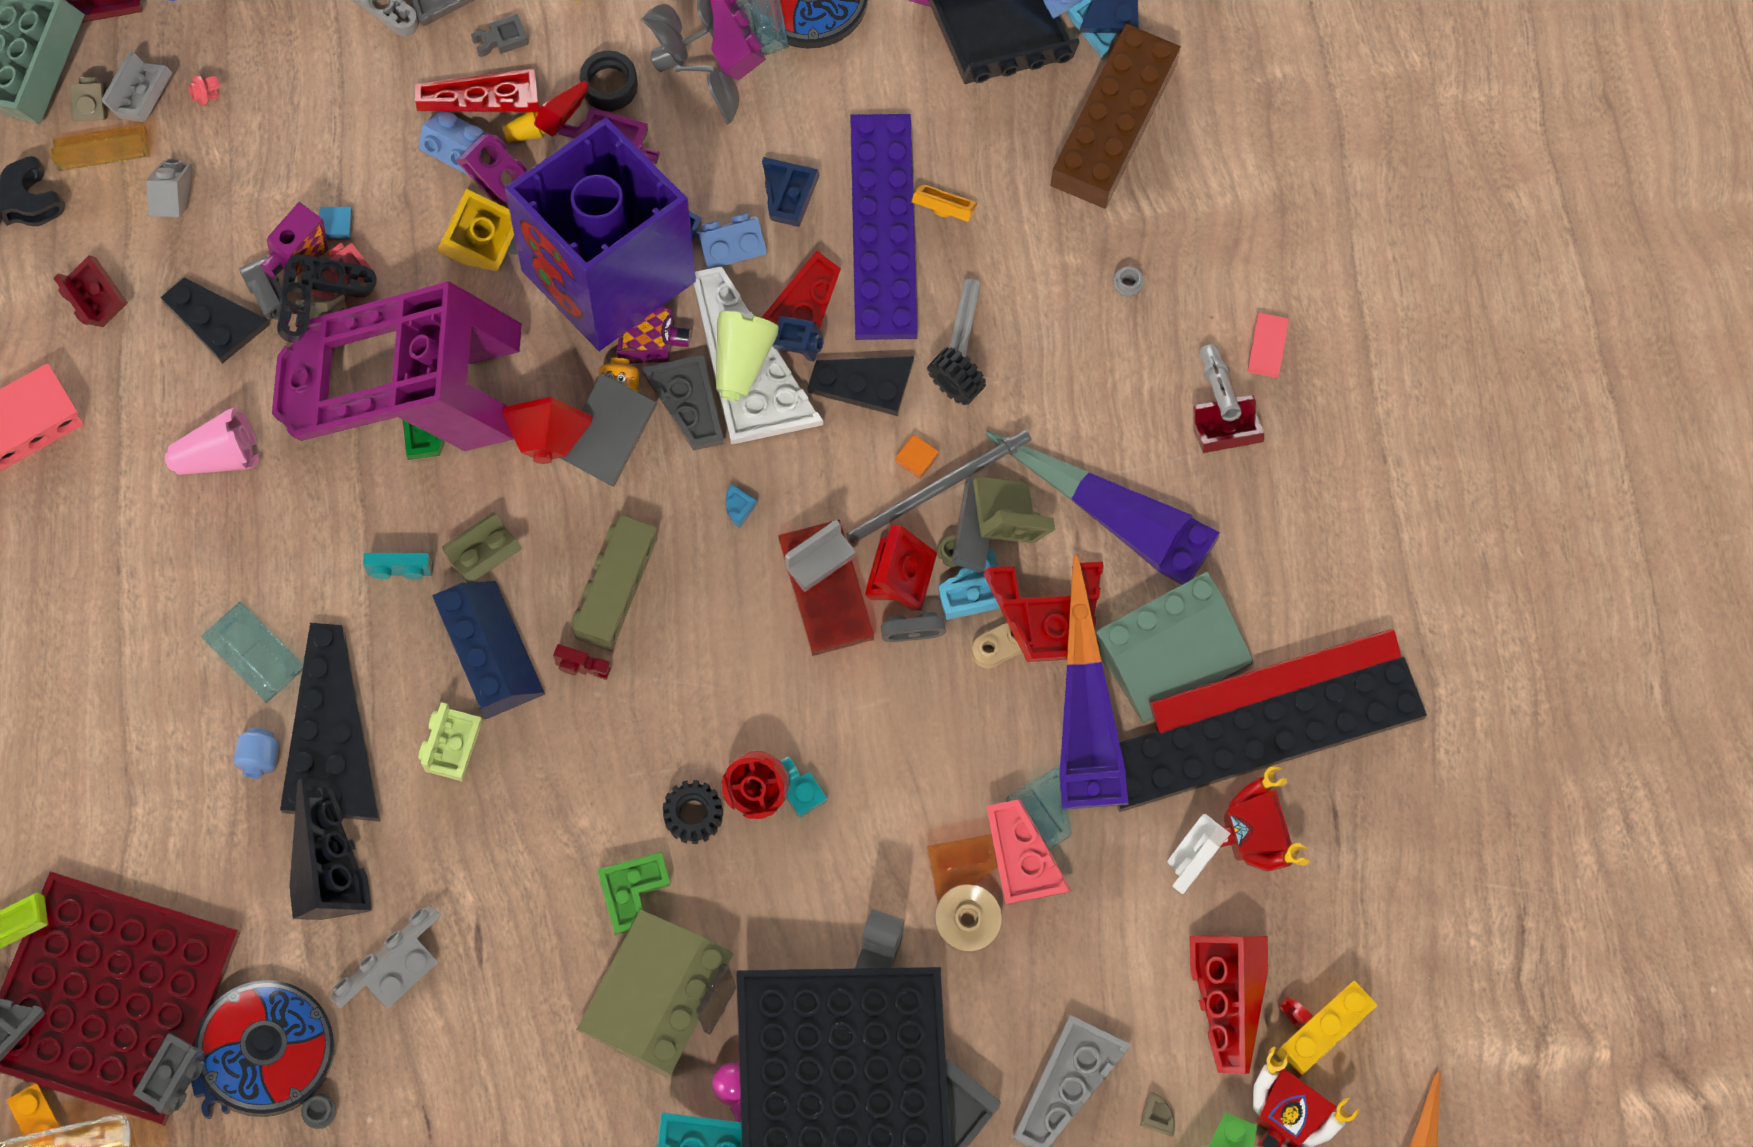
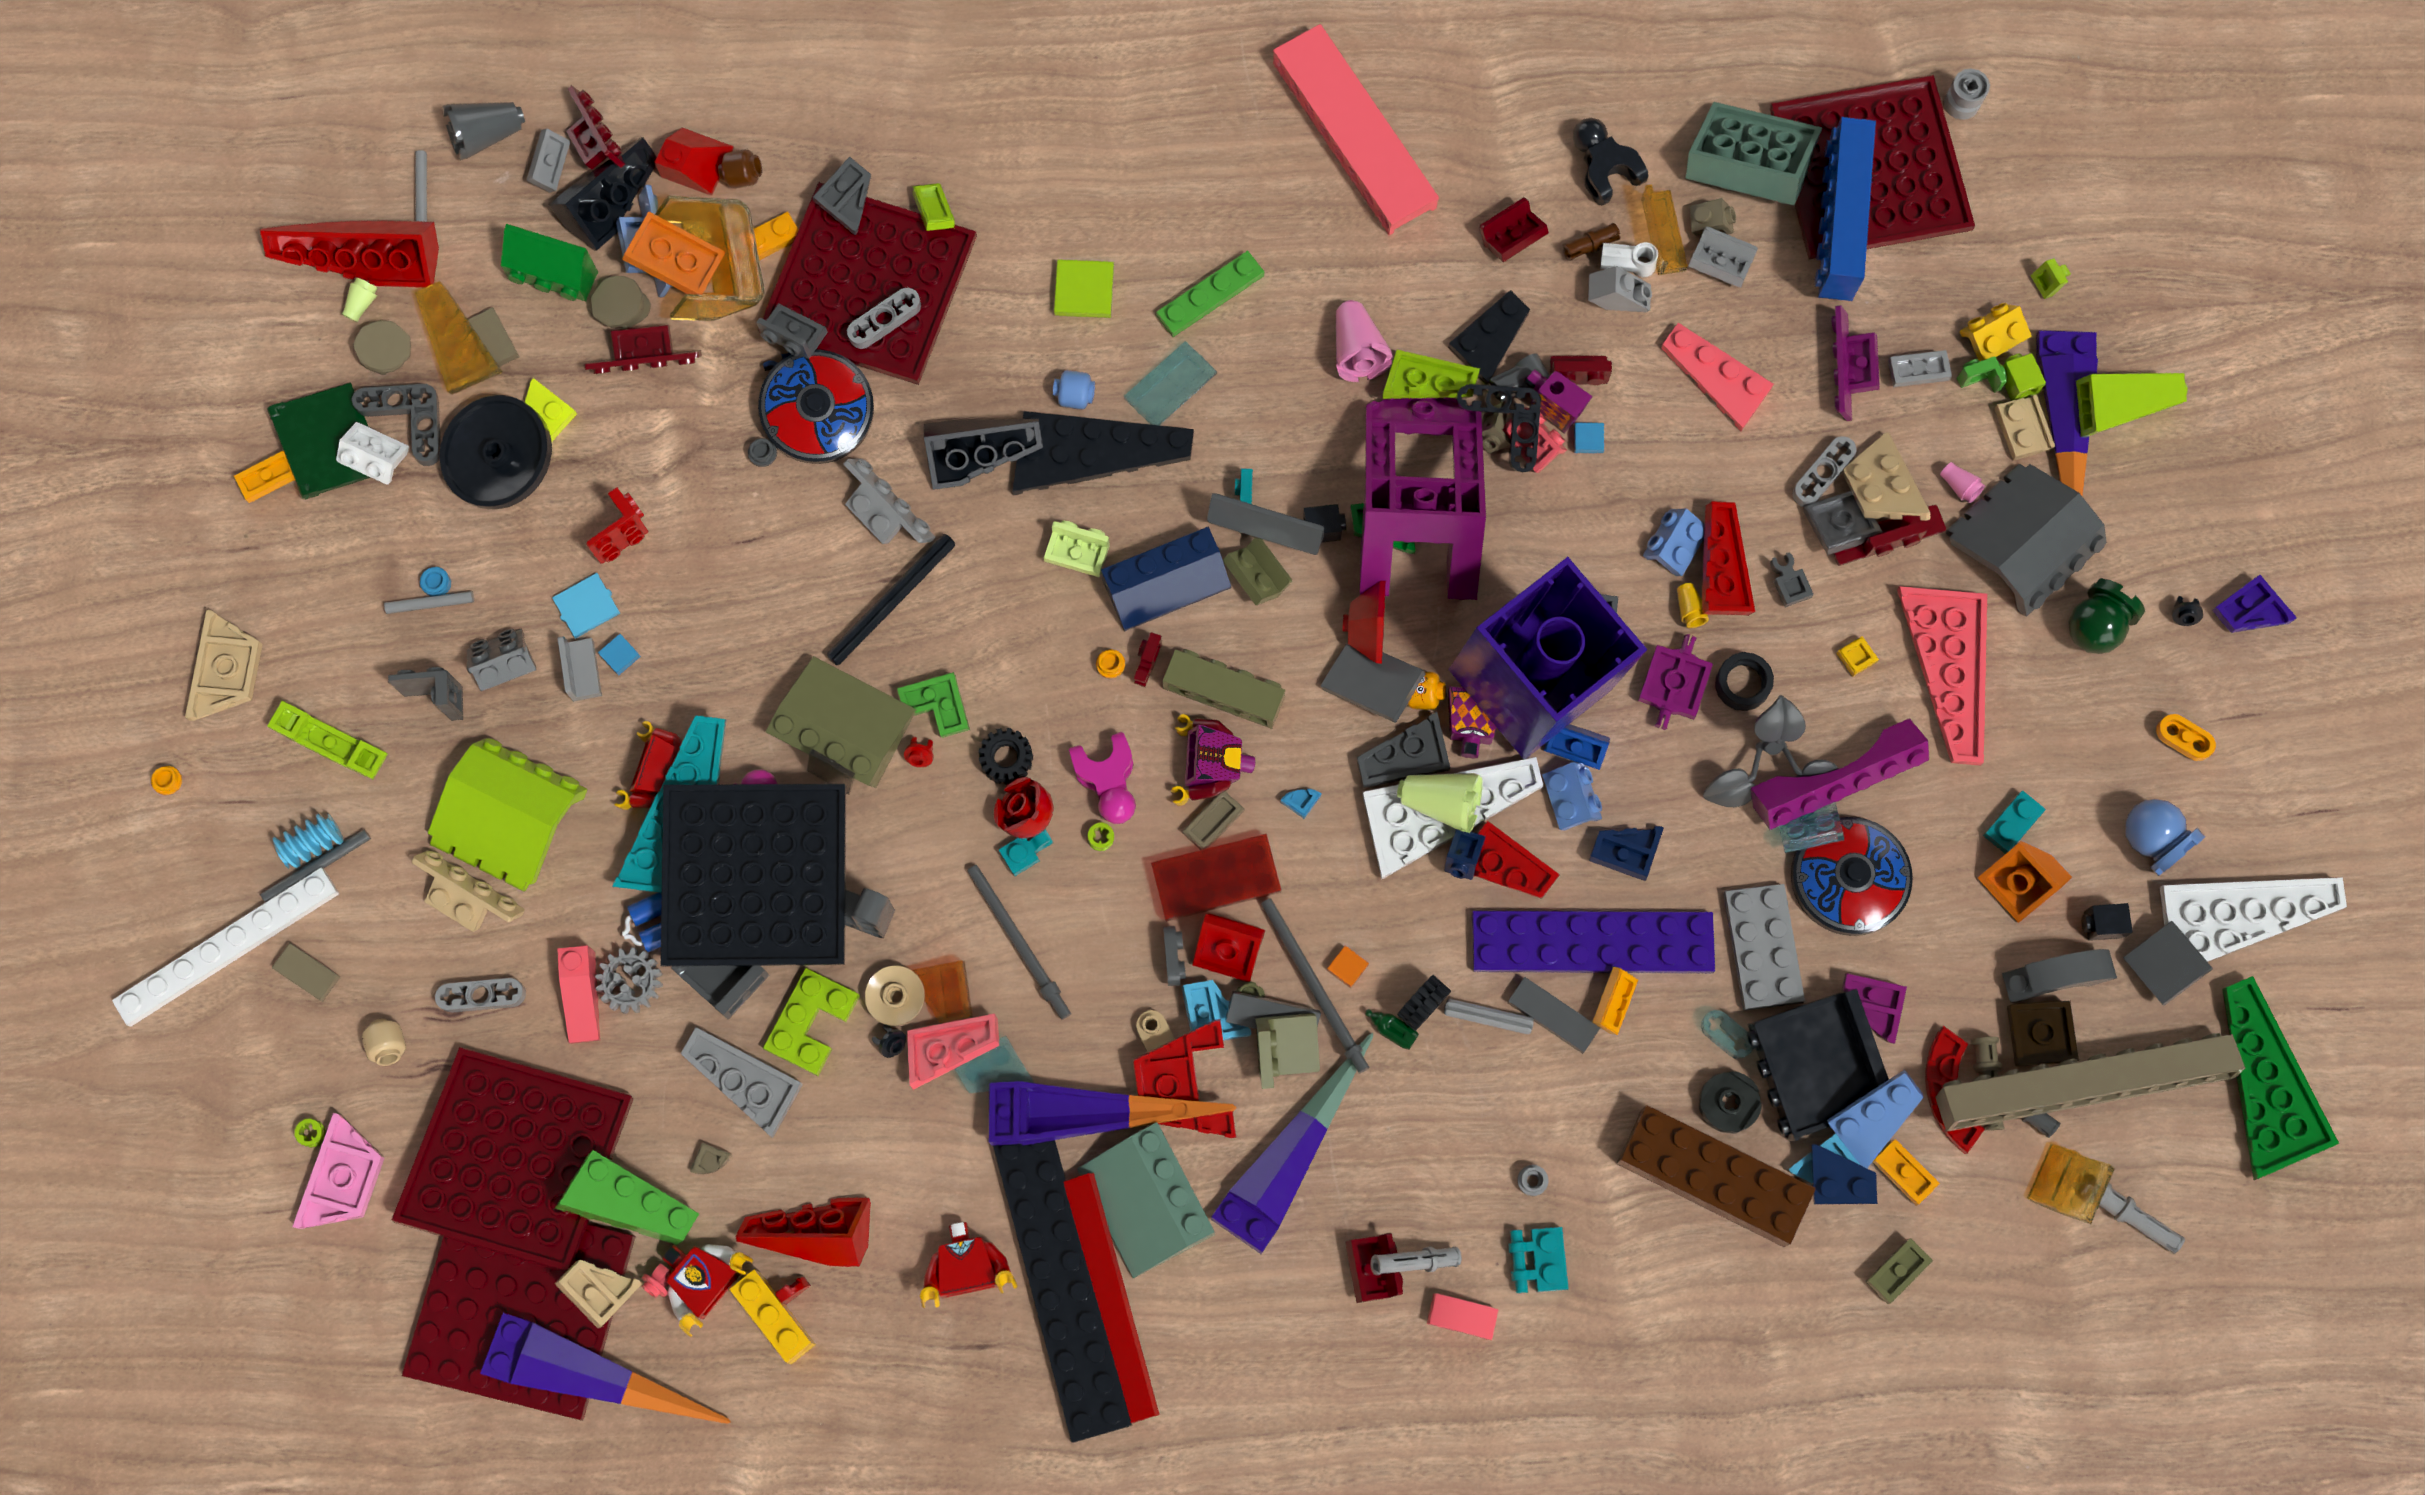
camera: 95 degrees right, 5 degrees up
(108, 216) = (1591, 241): none -> reddish brown pin
(129, 749) = (1084, 288): none -> lime tile
(131, 181) = (1627, 258): none -> white piece
(136, 956) = (883, 329): none -> light grey beam
(144, 610) = (1210, 294): none -> bright green plate
(204, 90) = (1724, 316): coral plate -> none
(257, 225) = (1583, 369): none -> dark red bracket
(261, 377) = (1427, 377): none -> lime wing
(269, 97) = (1722, 377): none -> coral wing
(427, 484) = (1329, 518): none -> black brick
(432, 534) = (1265, 524): none -> dark grey slope
(477, 232) = (1585, 552): yellow slope -> none
(489, 176) = (1635, 569): magenta brick -> none
(505, 950) = (890, 599): none -> black axle
(559, 110) = (1698, 628): red slope -> none
(584, 704) = (1110, 663): none -> light orange plate
(692, 907) = (918, 754): none -> red plate
(696, 590) = (1212, 759): none -> torso
(719, 700) = (1108, 779): none -> dark pink piece
(762, 593) = (1213, 820): none -> dark tan tile
(781, 719) = (1091, 836): none -> lime bush
(819, 556) = (1239, 869): light grey panel -> none
(863, 381) = (1426, 919): black wing -> none
(883, 72) = (1764, 947): none -> light grey plate
(953, 756) = (1049, 989): none -> dark grey bar
(959, 262) = (1554, 1015): none -> dark grey tile
(968, 101) = (1721, 1039): none -> clear light blue beam
(981, 411) = (1393, 1028): none -> dark green piece
(1015, 1035) = (789, 1036): none -> lime plate
(1021, 918) = (891, 1043): none -> black plate
(1038, 88) = (1747, 1099): none -> pearl dark grey plate
(1196, 851) = (941, 1205): white bracket -> none
(1206, 268) = (1548, 1259): none -> teal plate

